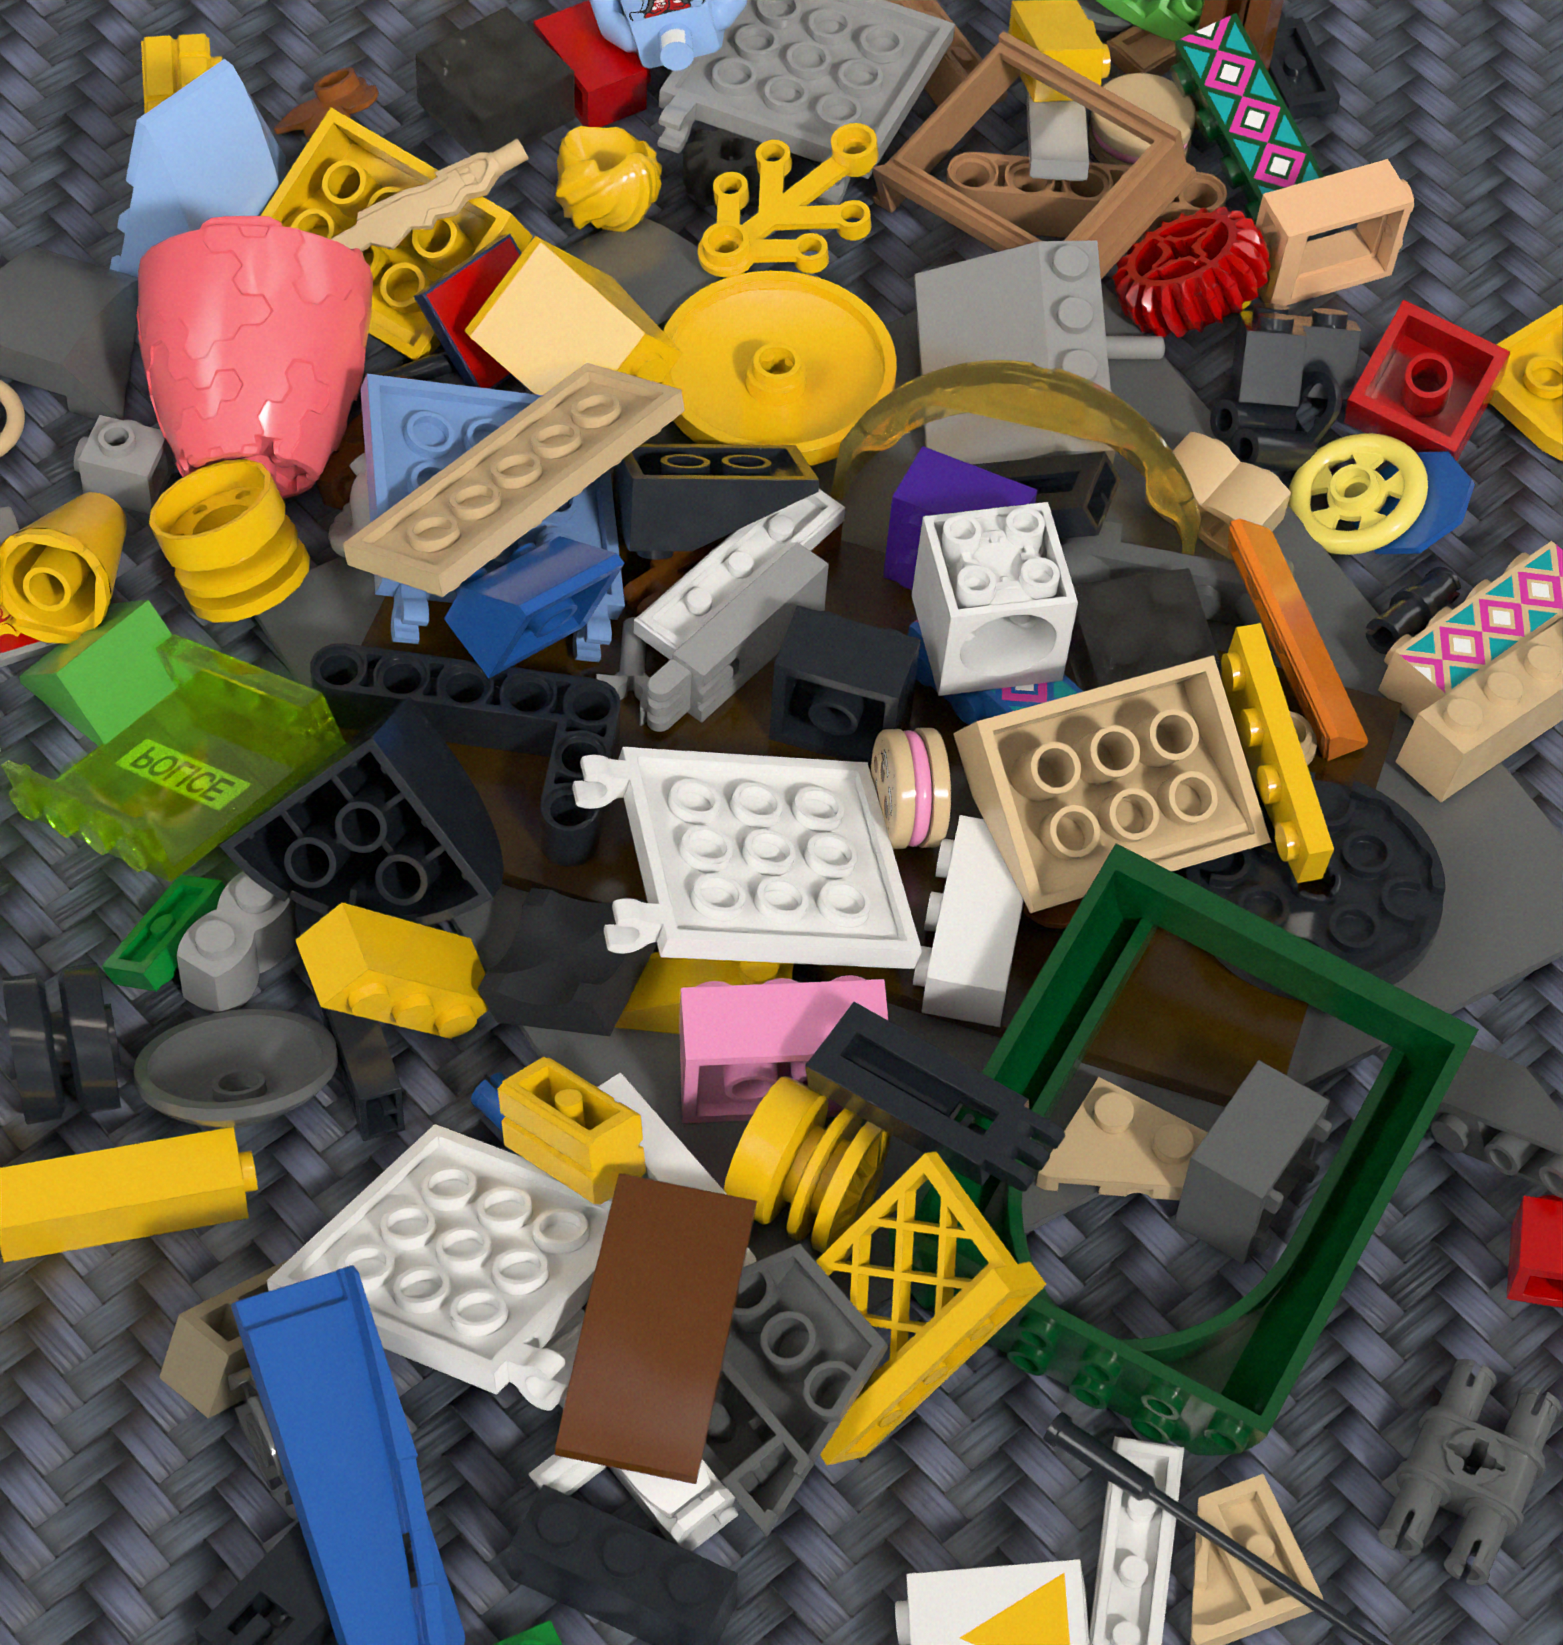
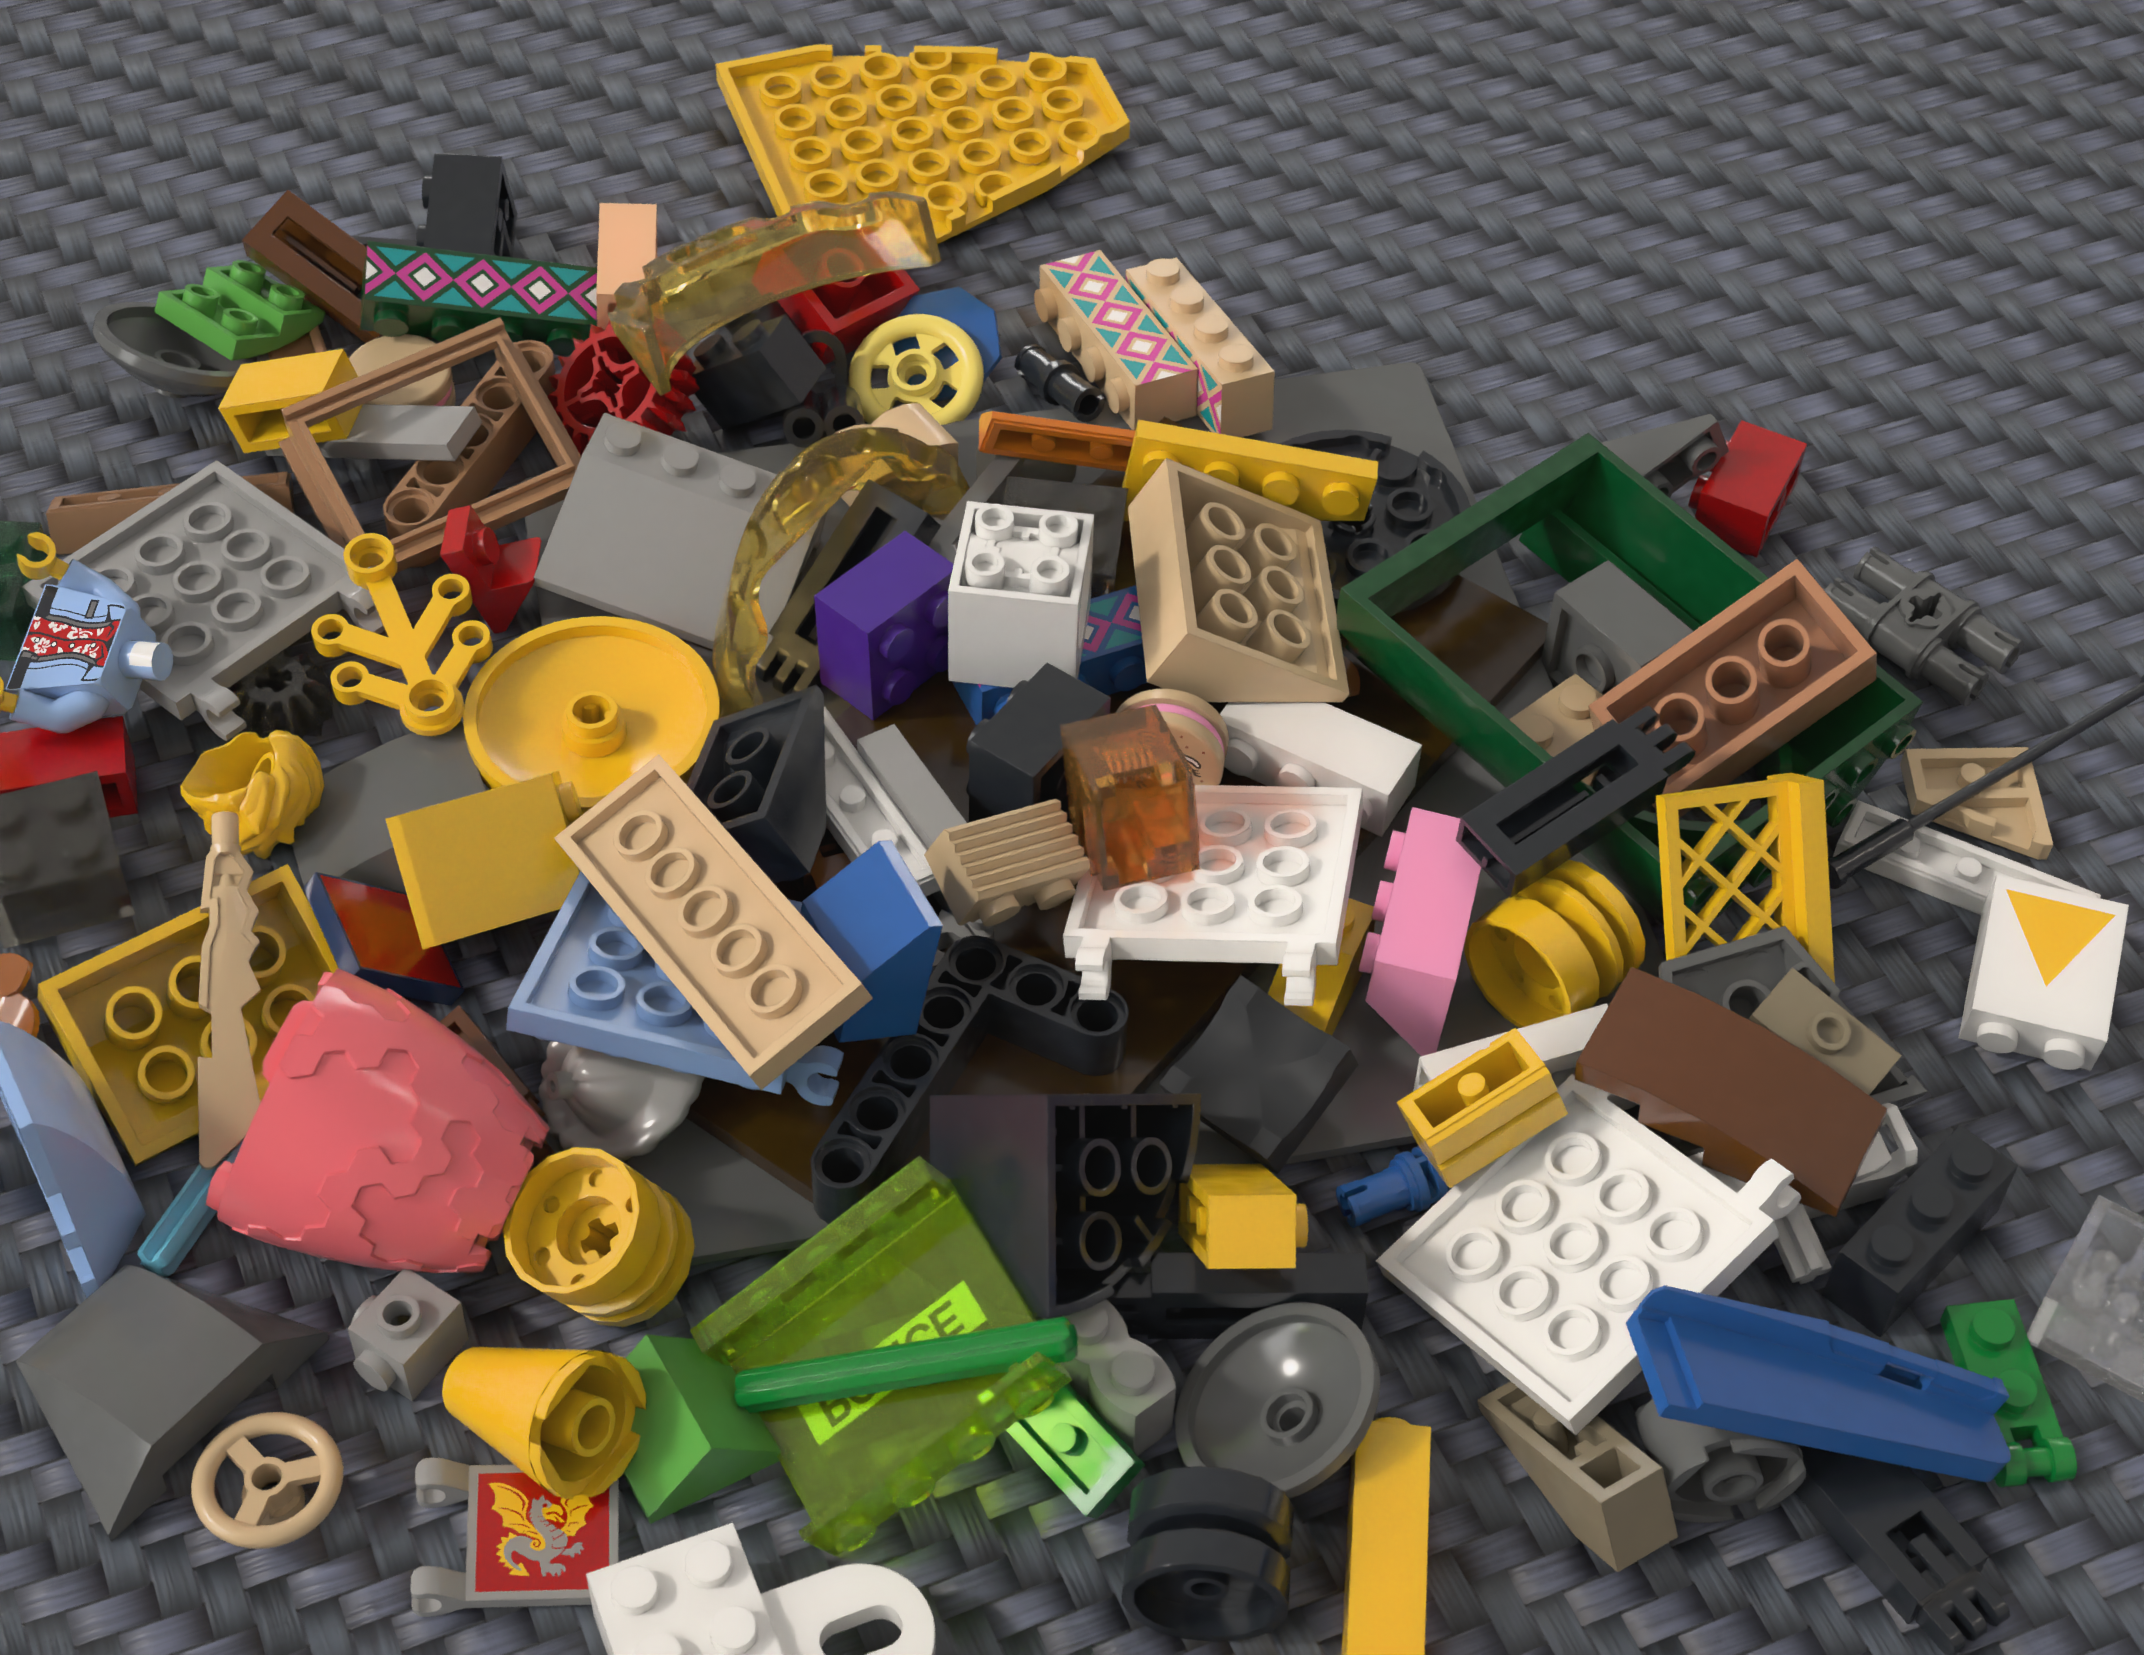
camera: 70 degrees left, 5 degrees down
(164, 776) = (904, 1365): none -> green axle
(681, 681) = (1007, 863): none -> tan brick
(769, 1411) = (1825, 1031): none -> dark tan plate
(789, 746) = (1130, 797): none -> clear orange piece
(919, 234) = (496, 573): none -> red slope
(1193, 1248) = (1748, 679): none -> nougat brick
(1322, 272) = (760, 262): none -> clear yellow windscreen
(1349, 85) = (468, 206): none -> black brick

